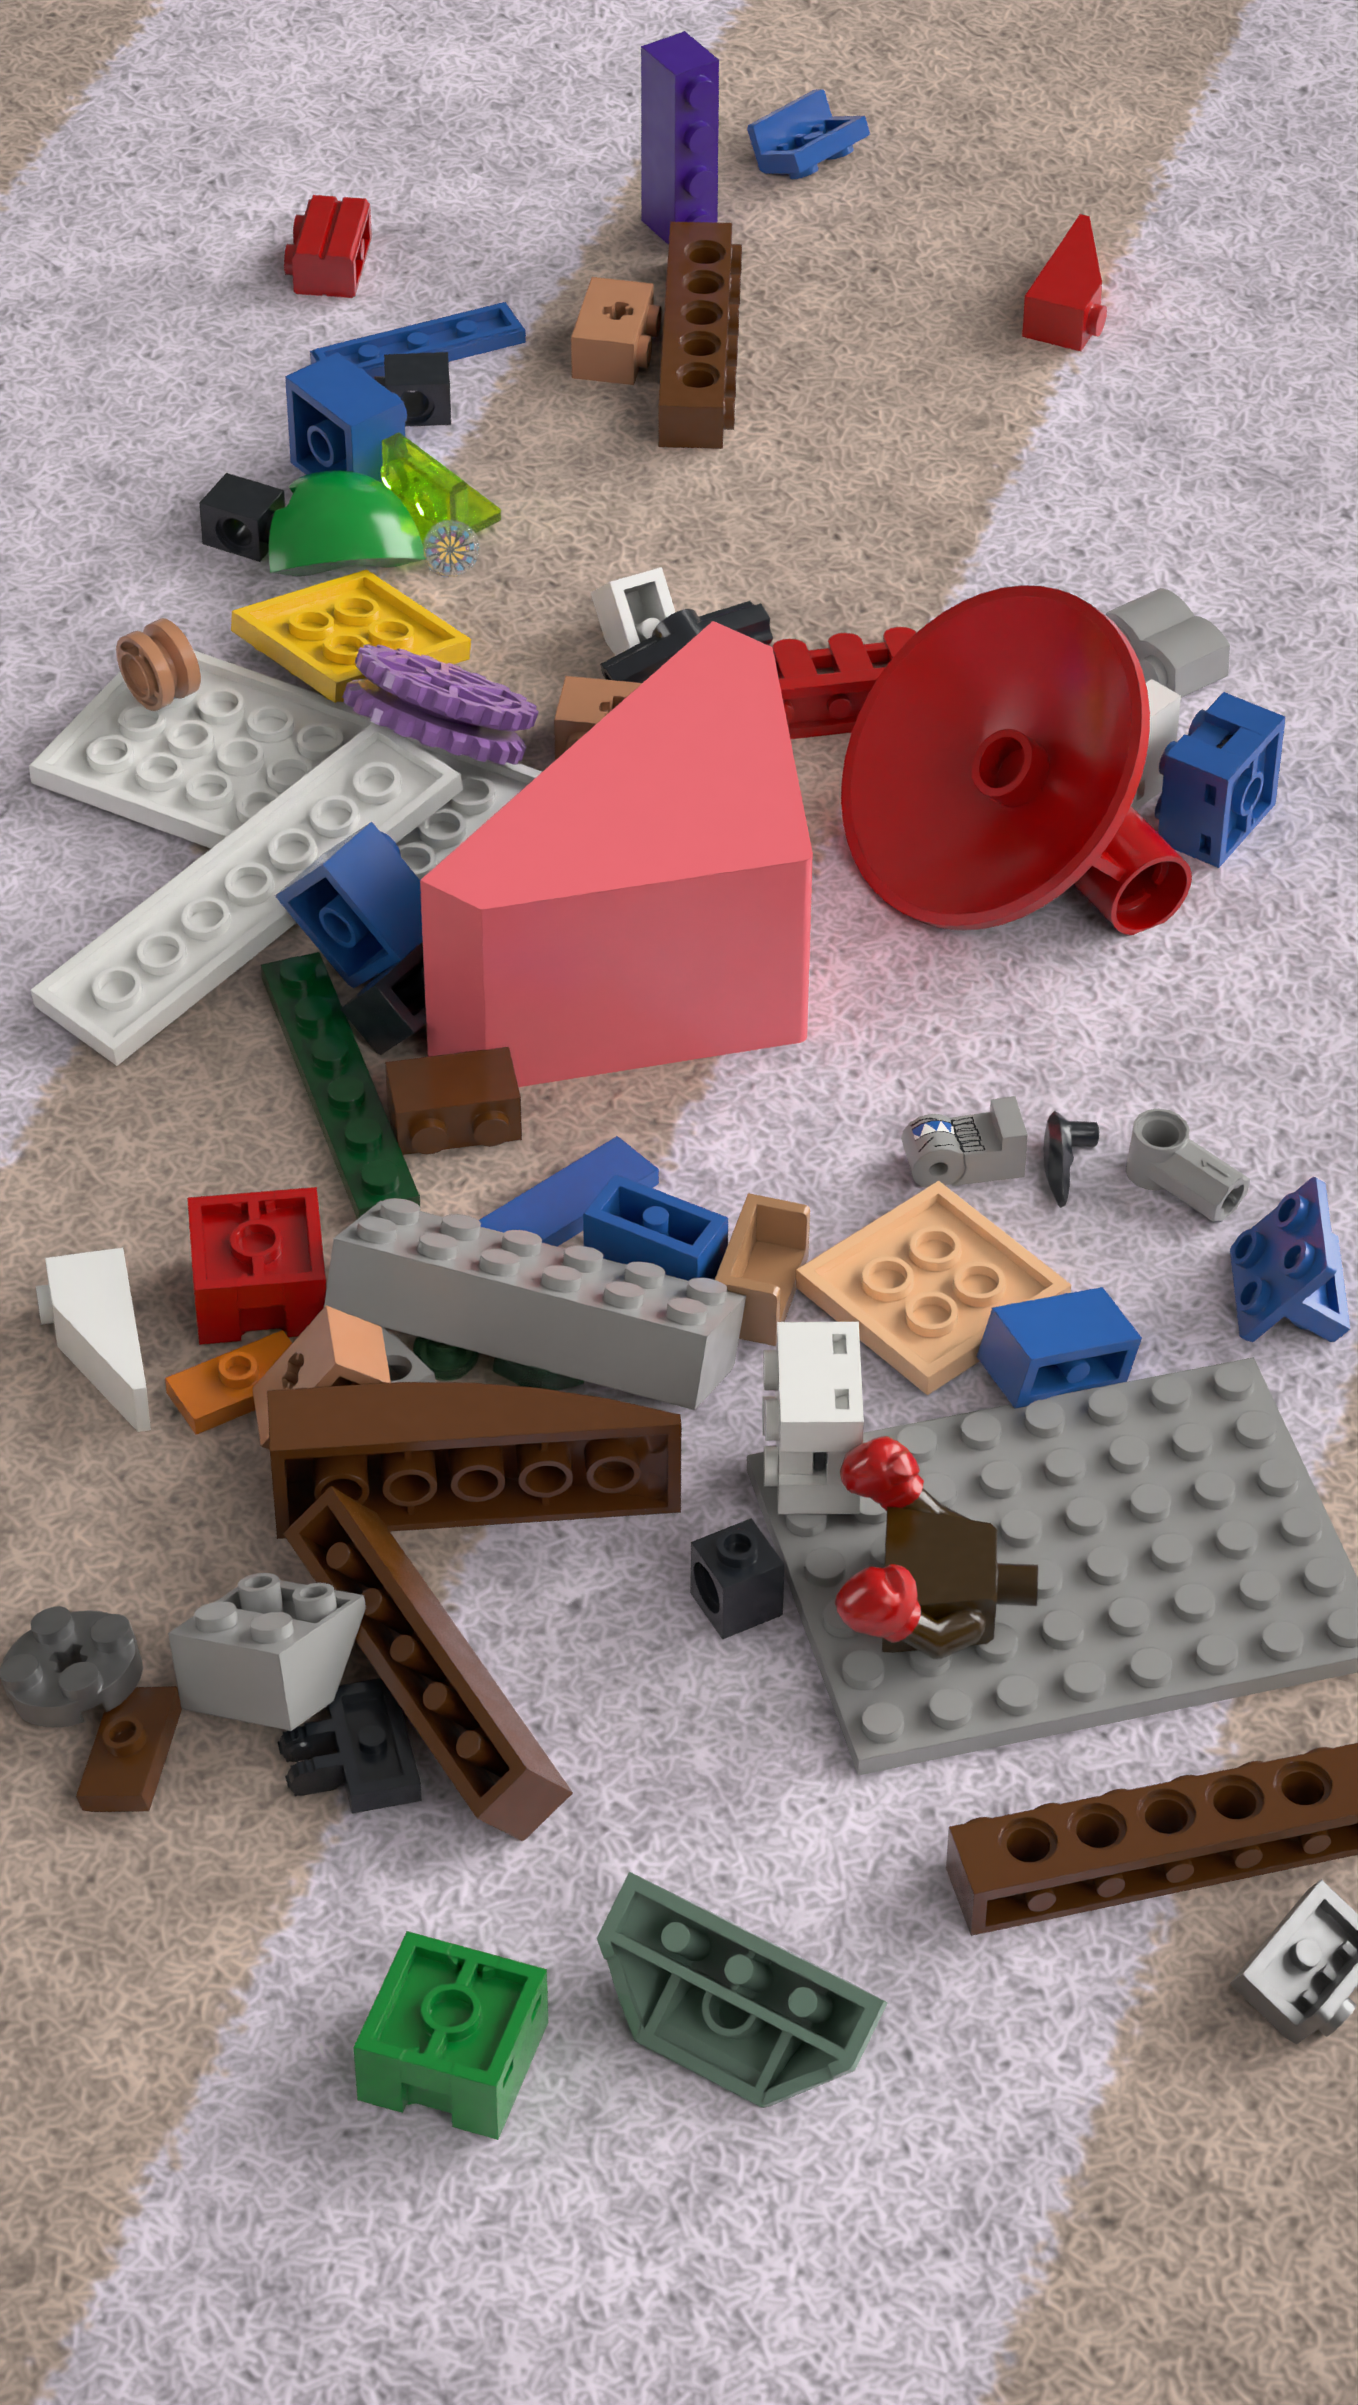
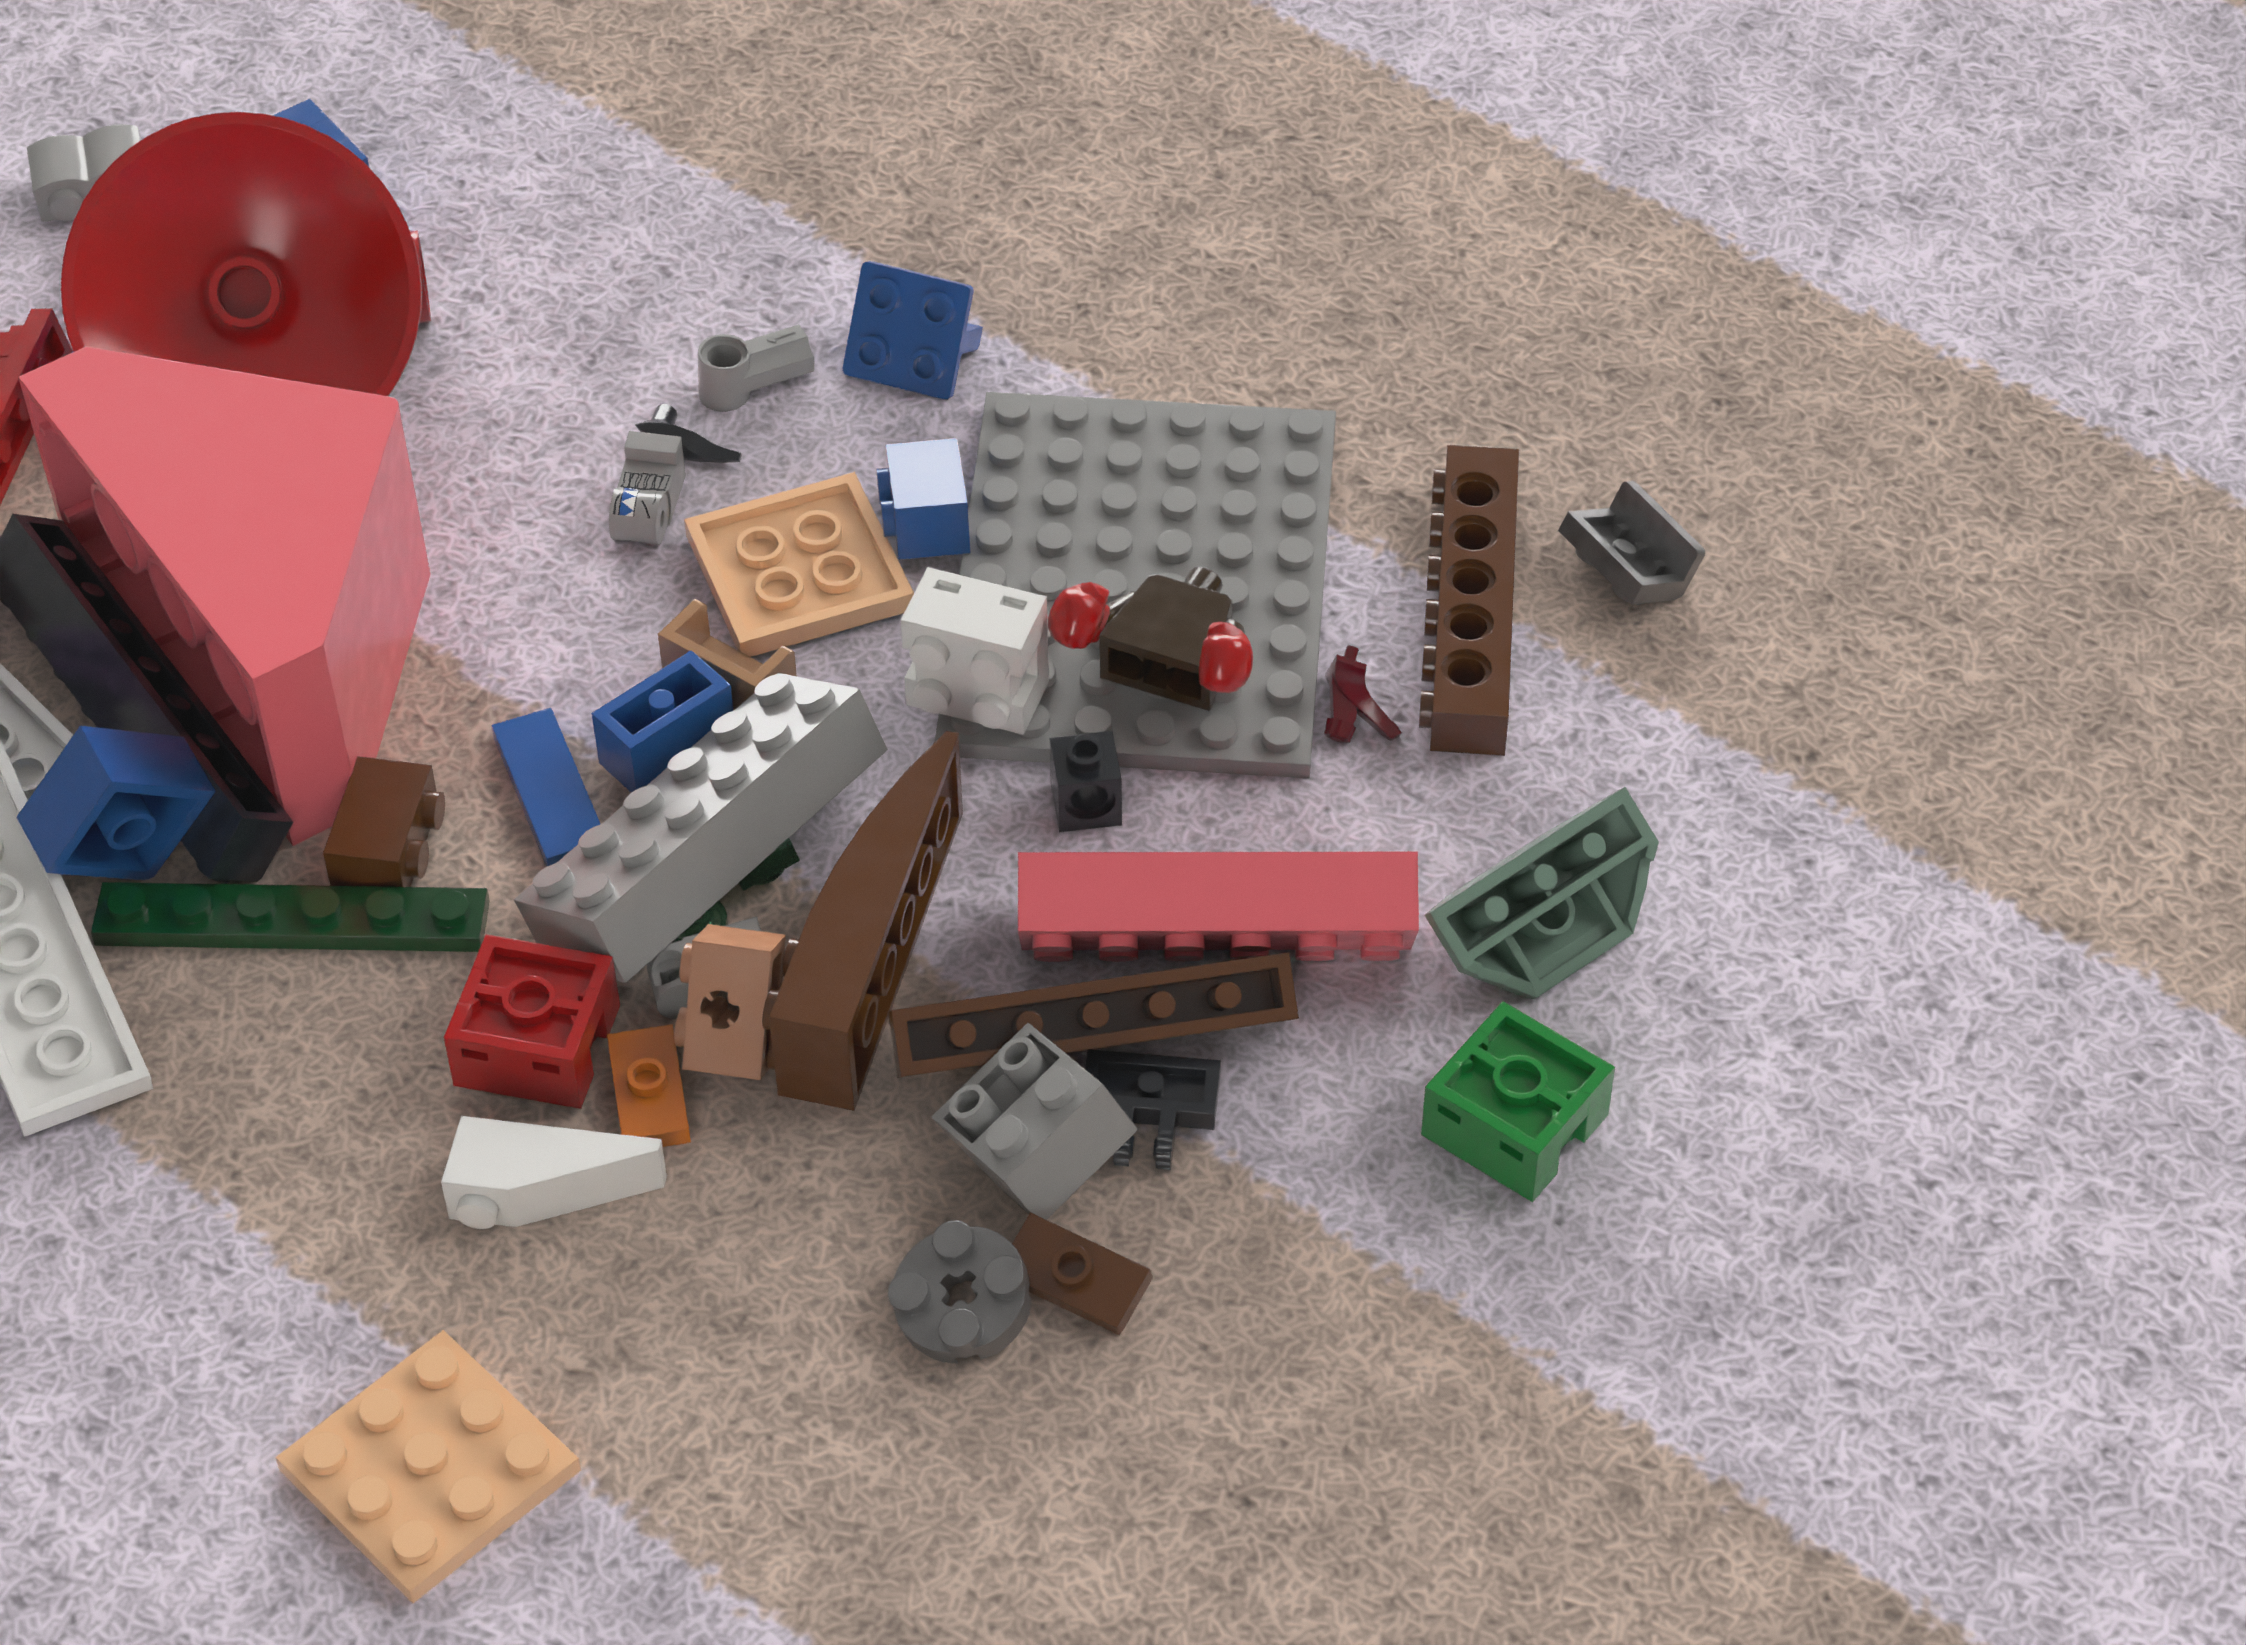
camera: 70 degrees left, 5 degrees up
(591, 1709) = (1217, 904): none -> coral brick
(966, 1768) = (1351, 698): none -> dark red piece

